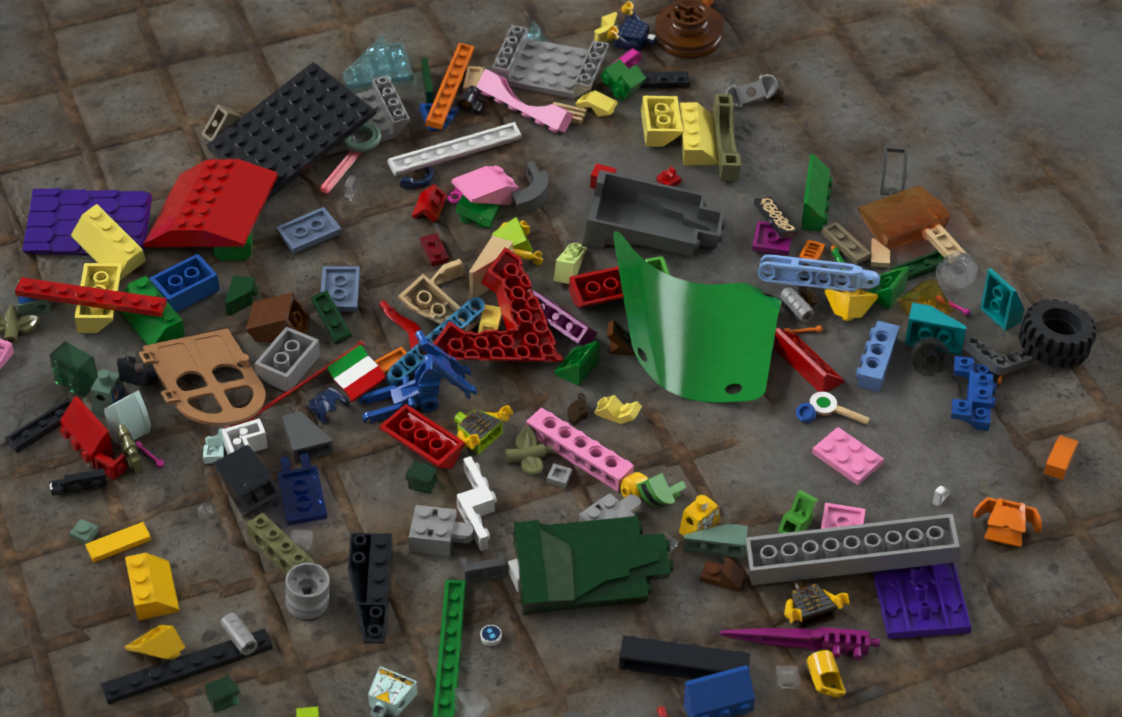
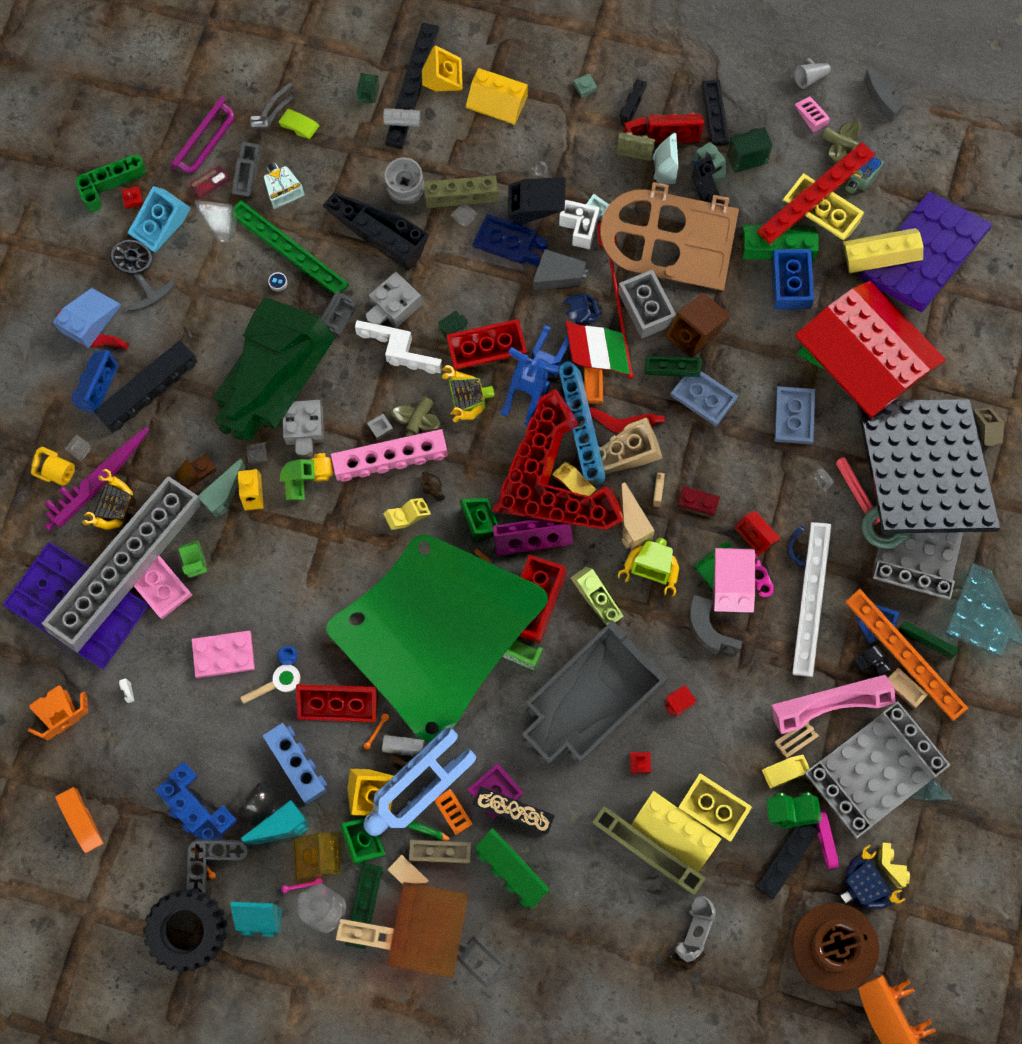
camera: 130 degrees right, 25 degrees up
(118, 542) = (557, 101): yellow tile -> none
(159, 463) = (615, 167): dark pink hinge -> none
(240, 294) = (753, 317): dark green slope -> none

